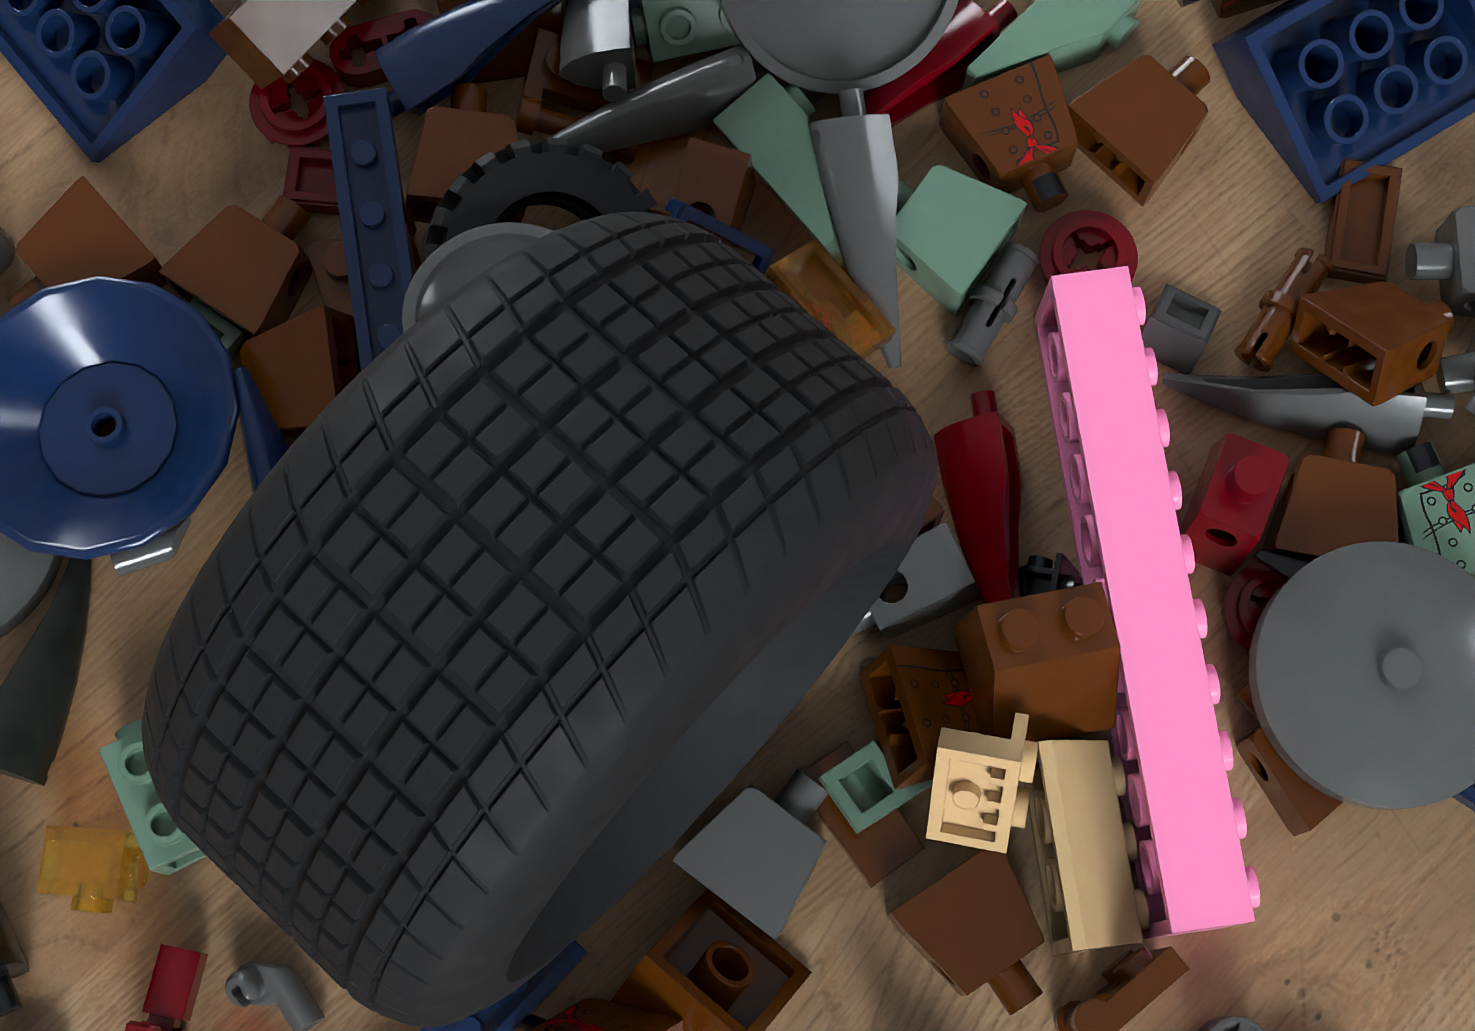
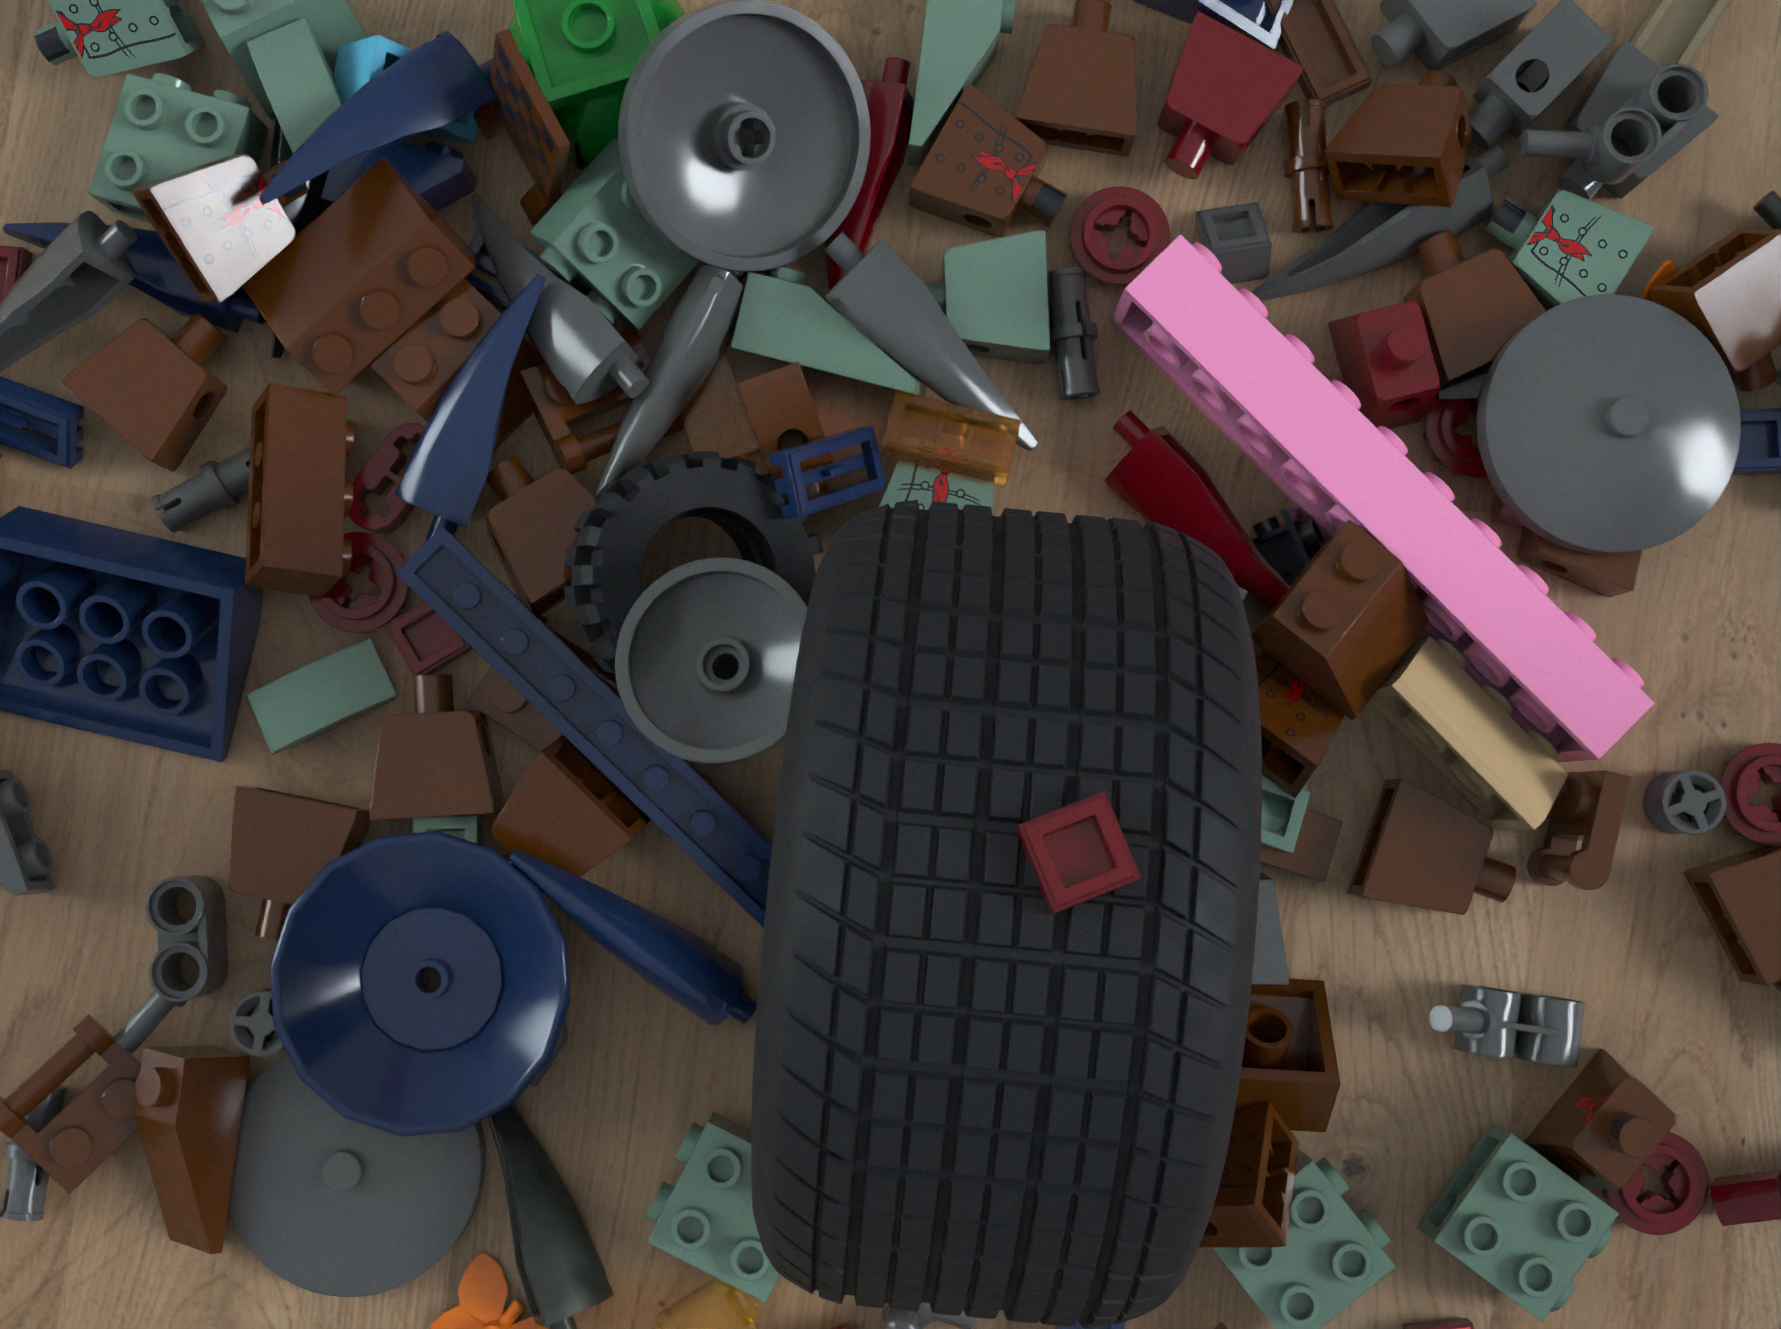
camera: 40 degrees left, 10 degrees up
(202, 162) = (321, 696): none -> sand green slope
(599, 498) = (1078, 852): none -> dark red tile
(978, 788) = (1370, 751): tan bracket -> none
(1250, 206) = (1221, 95): none -> dark red torso

